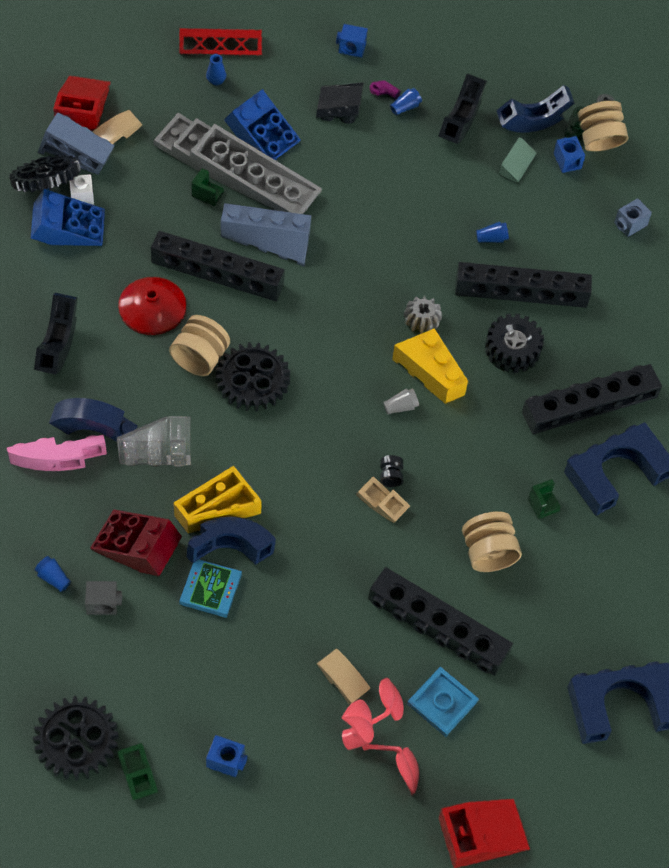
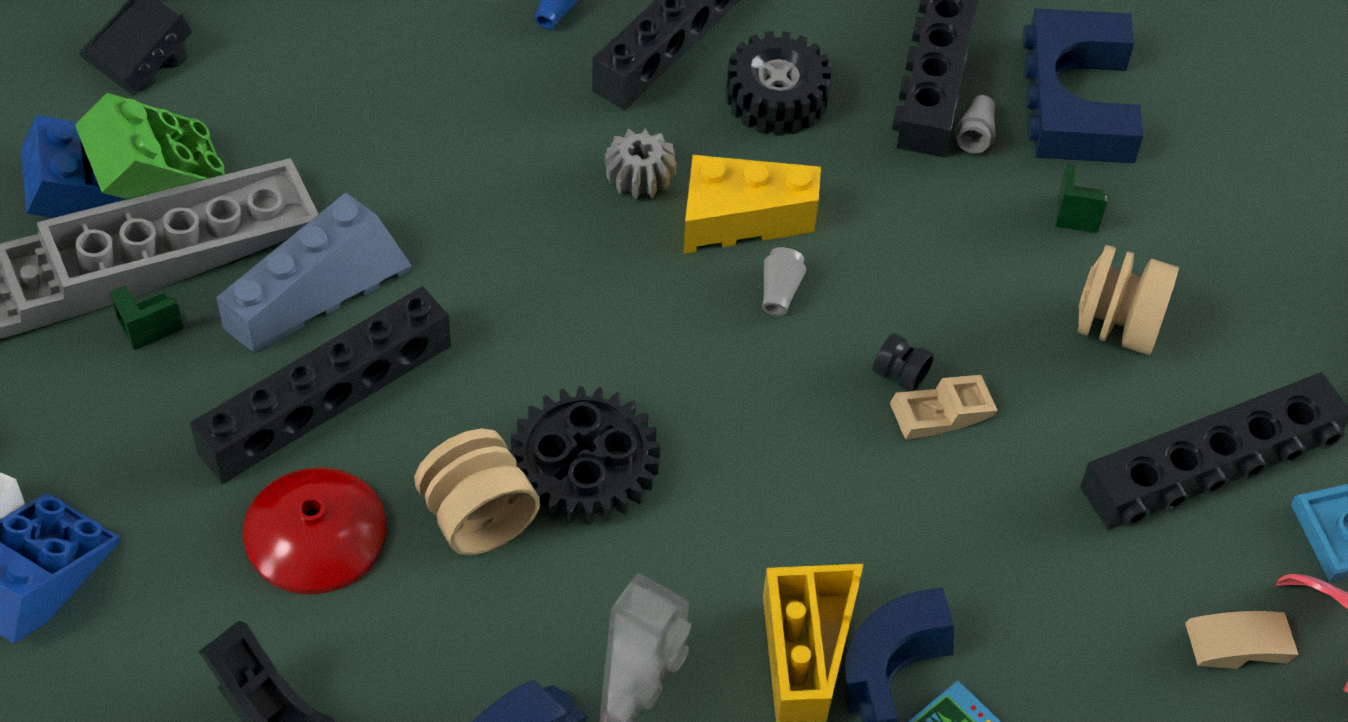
camera: 55 degrees left, 5 degrees down
(280, 137) = (145, 147): none -> bright green slope
(555, 436) = (977, 126): none -> light grey cone

